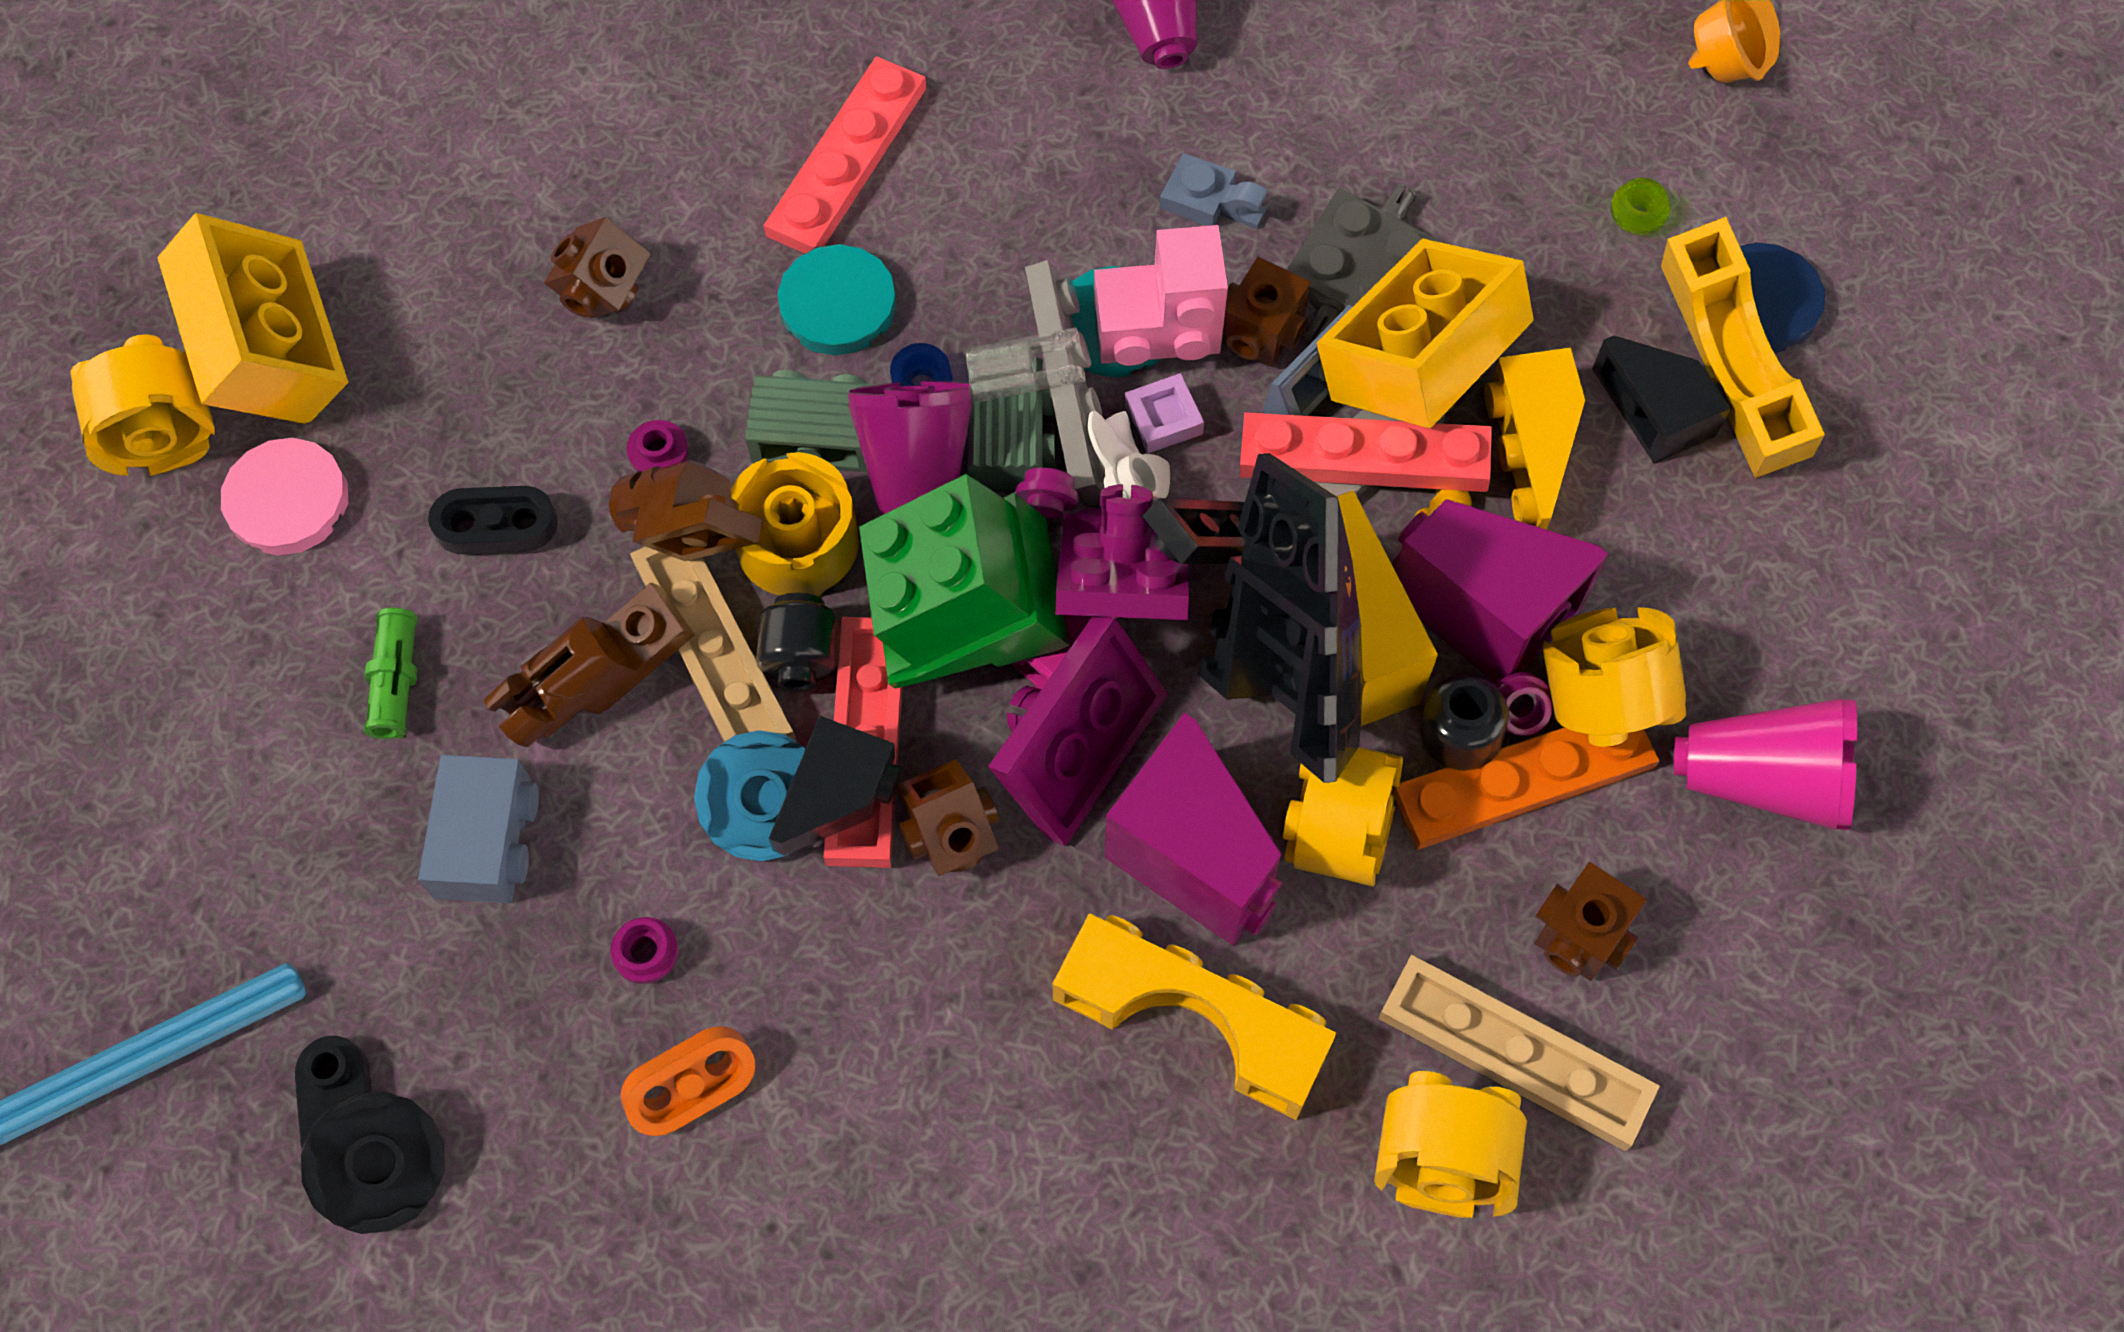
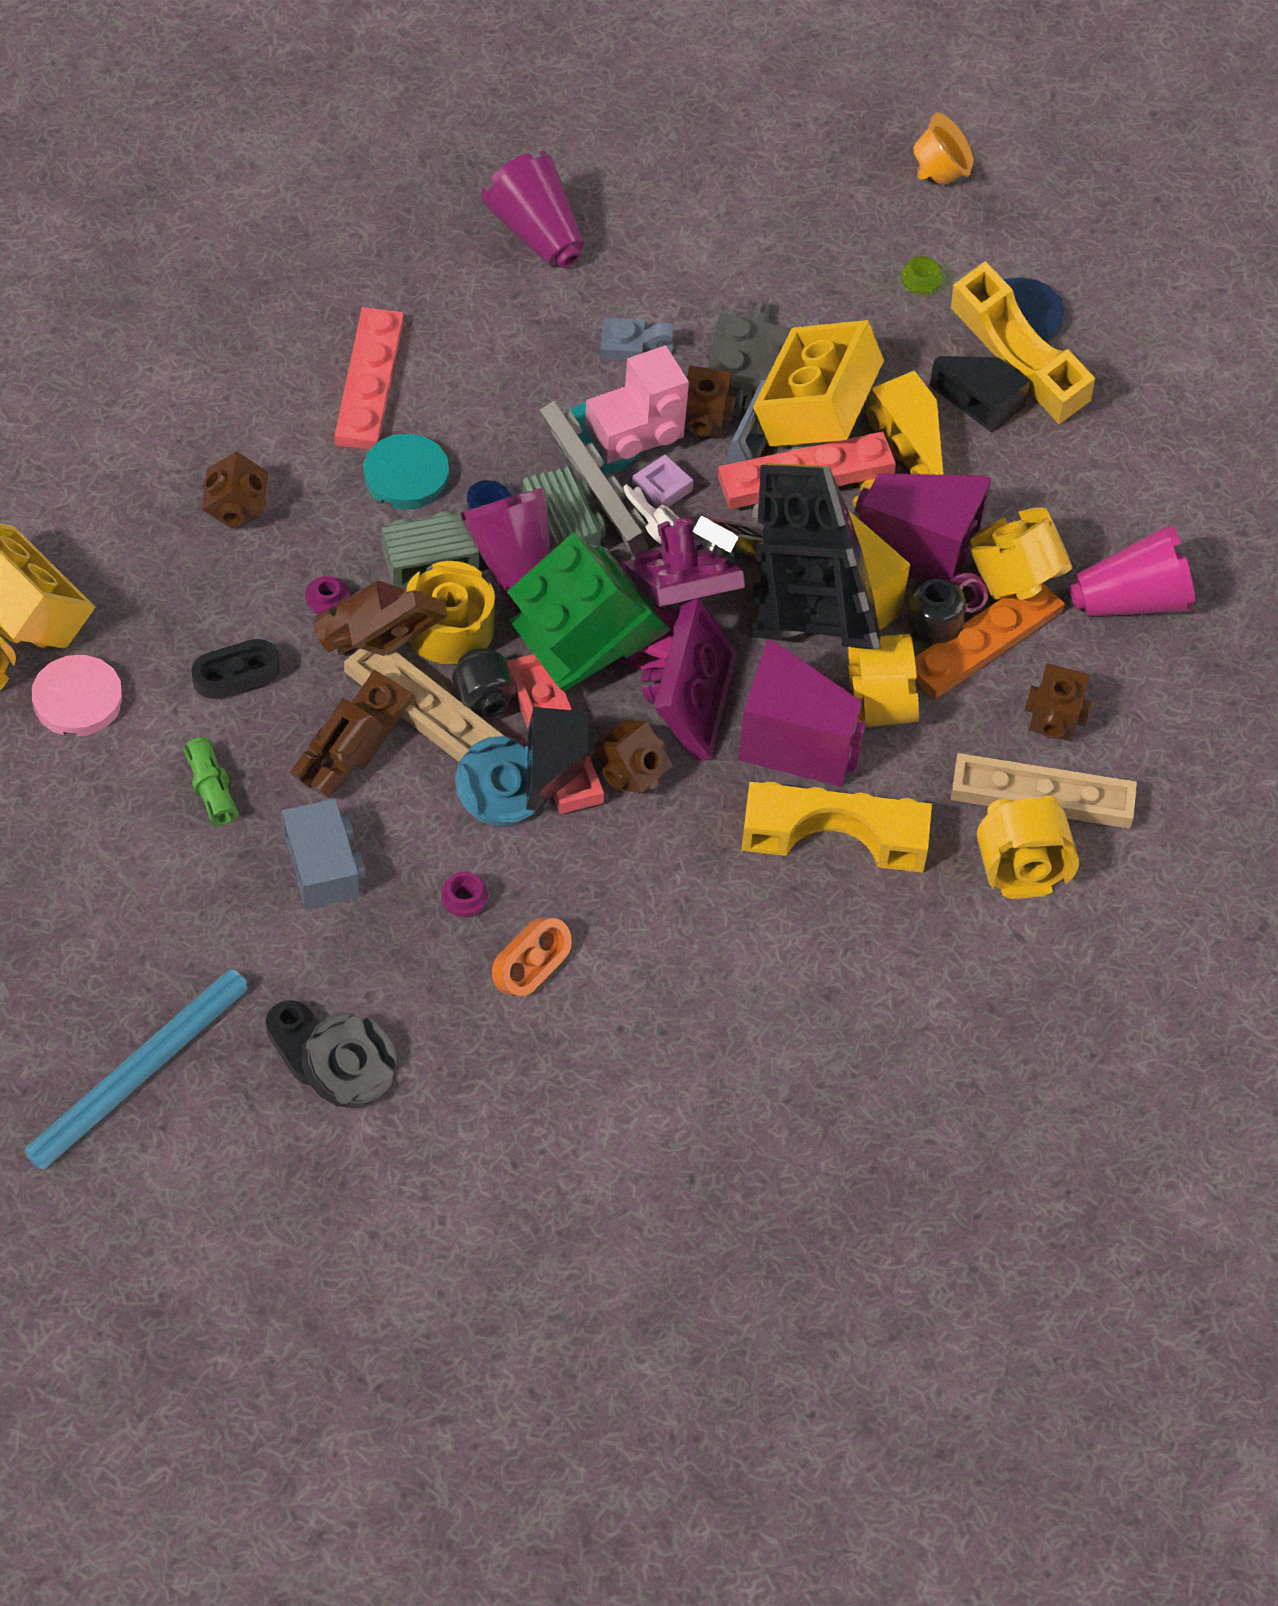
camera: 25 degrees left, 10 degrees down
(1010, 368) = (559, 471): clear hinge -> none
(1048, 491) = (616, 542): magenta plate -> none

